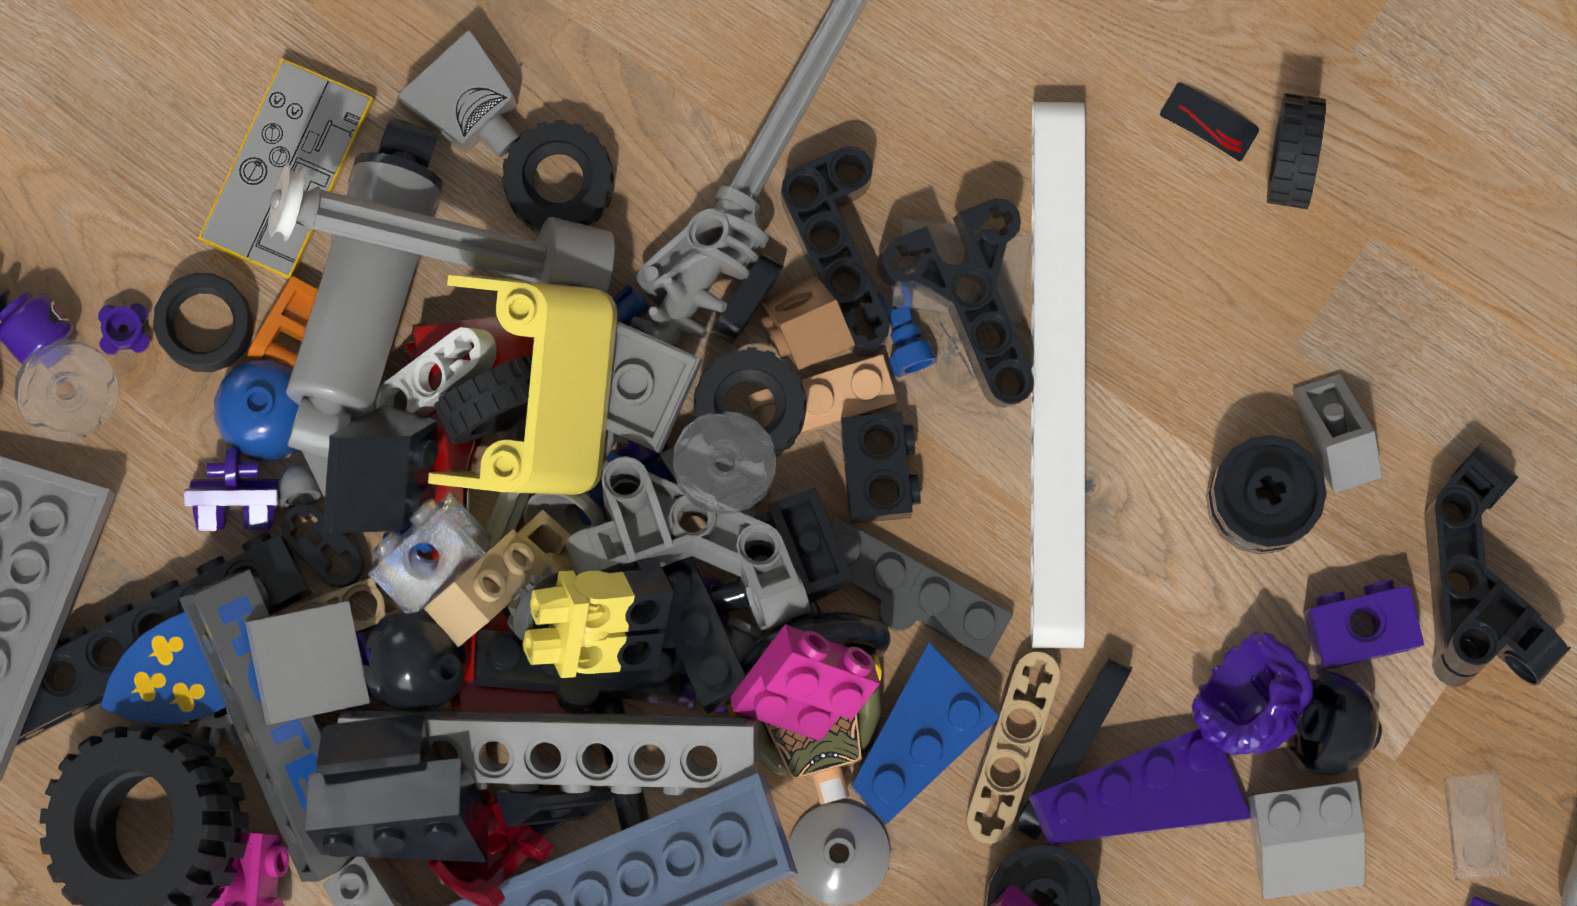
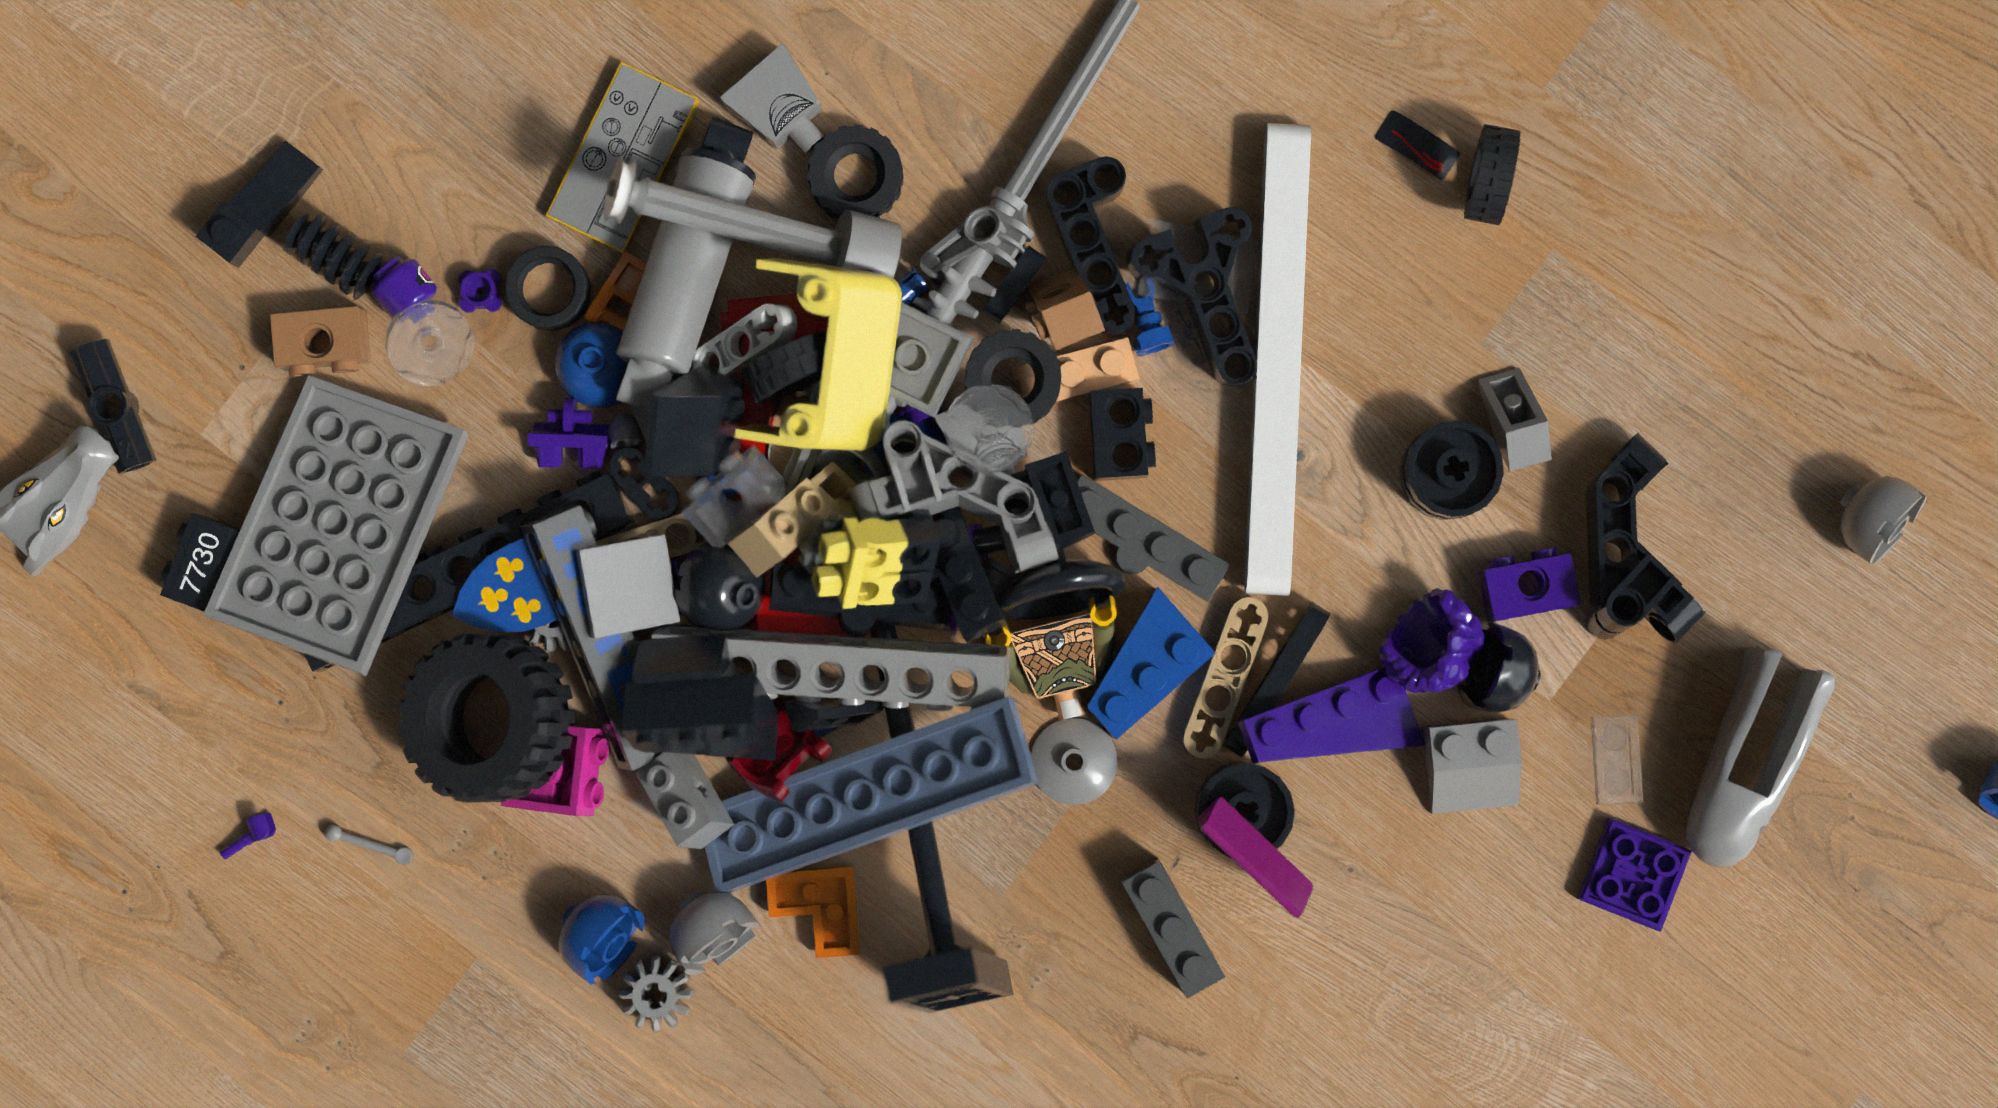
camera: 10 degrees right, 5 degrees up
(806, 683) = (1052, 620): dark pink plate -> none

